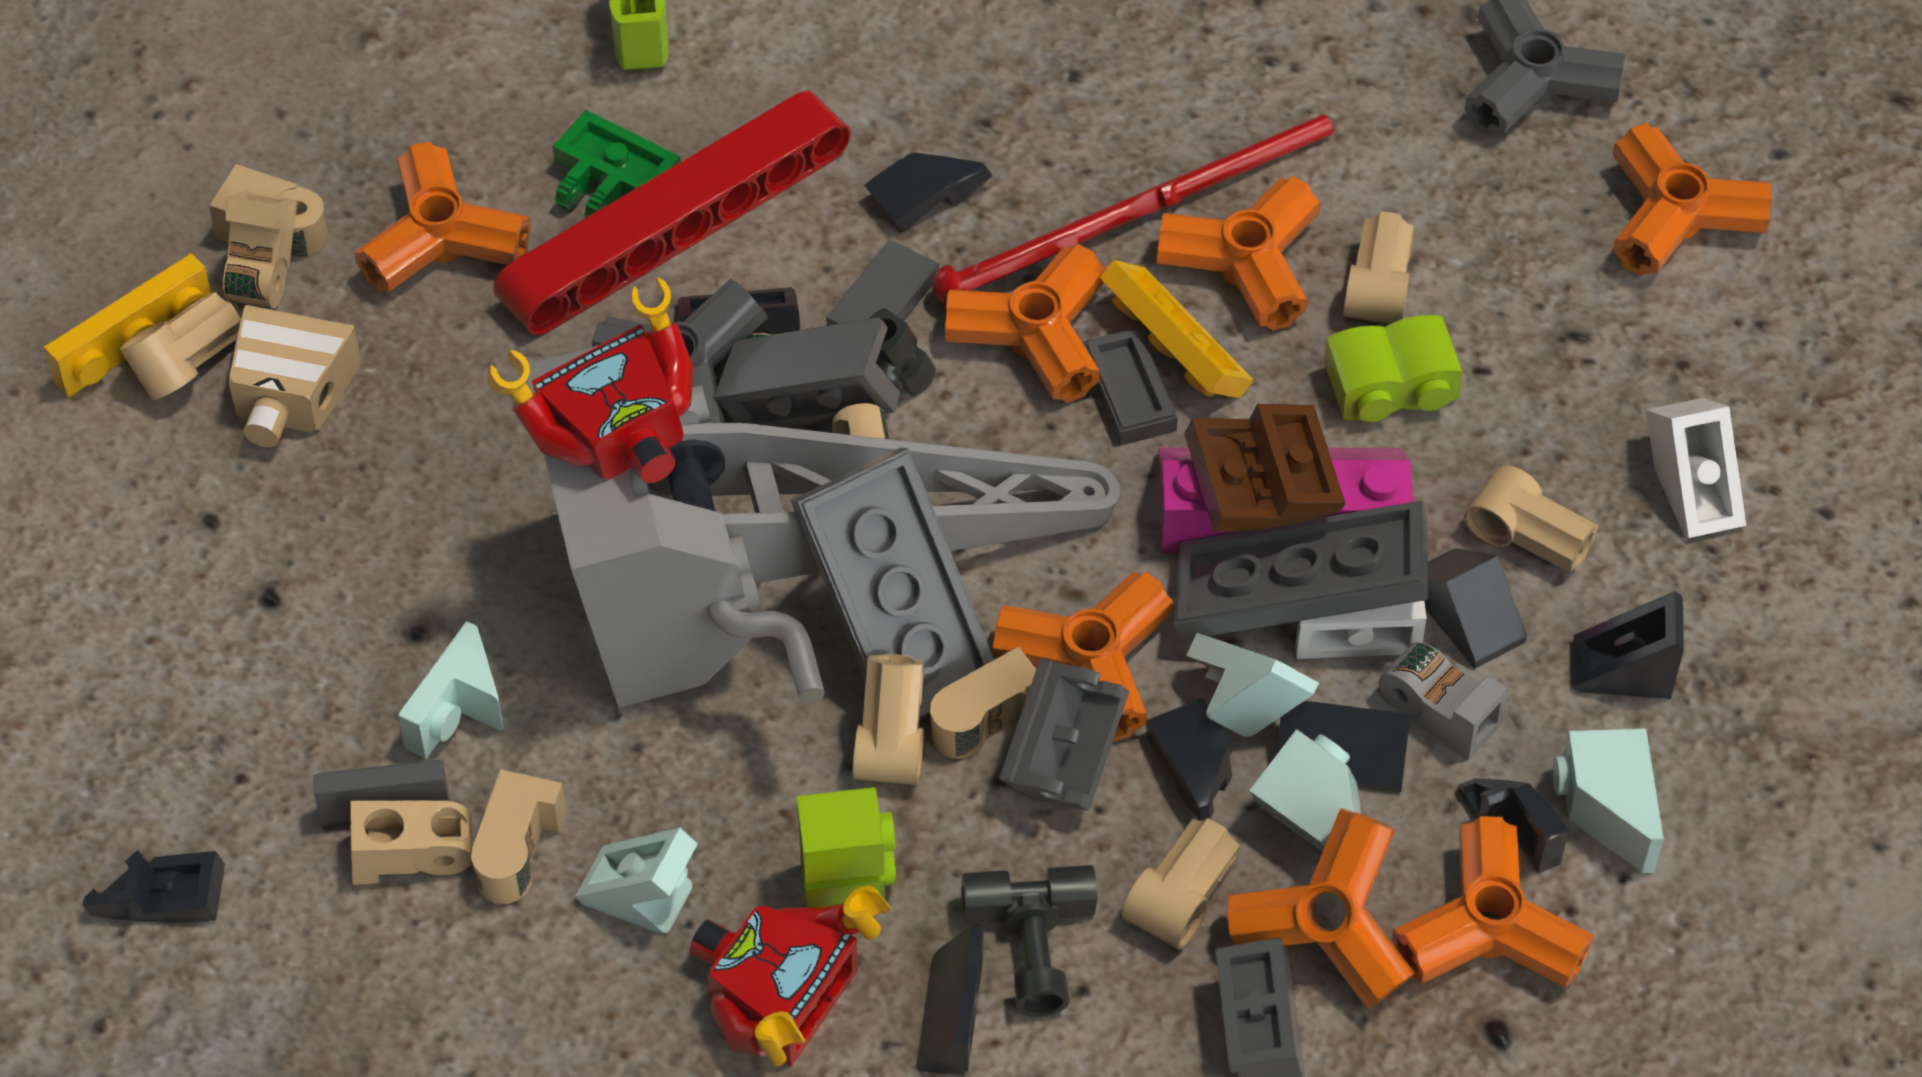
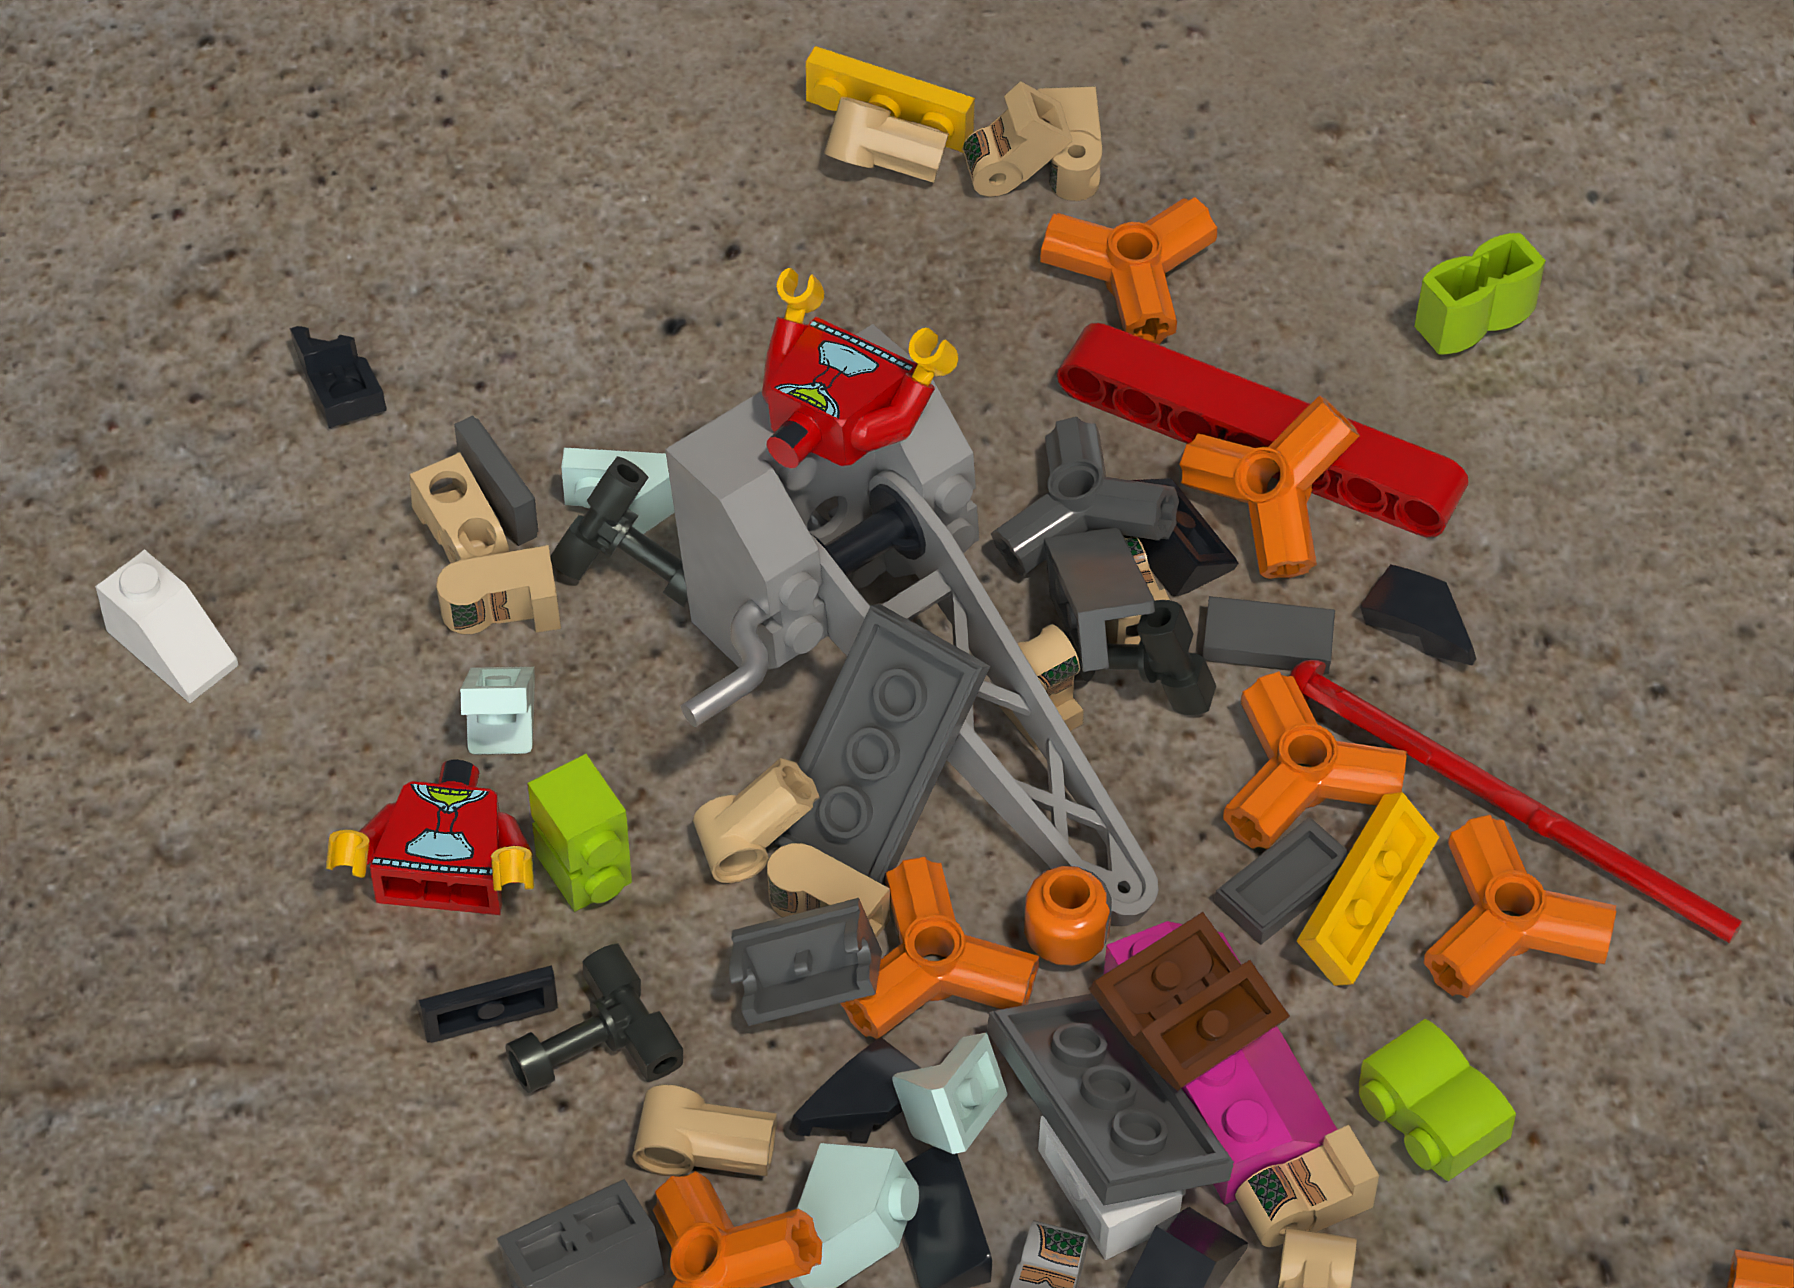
camera: 65 degrees right, 0 degrees up
(289, 371) = (901, 227): tan torso -> none
(516, 710) = (610, 526): none -> pearl dark grey bar
(609, 156) = (1294, 351): green hinge -> none
(748, 178) = (1243, 473): none -> orange piece
(1105, 535) = (1067, 915): none -> orange head
(1379, 279) = (1540, 1050): tan piece -> none
(1438, 476) = (1310, 1189): none -> tan leg

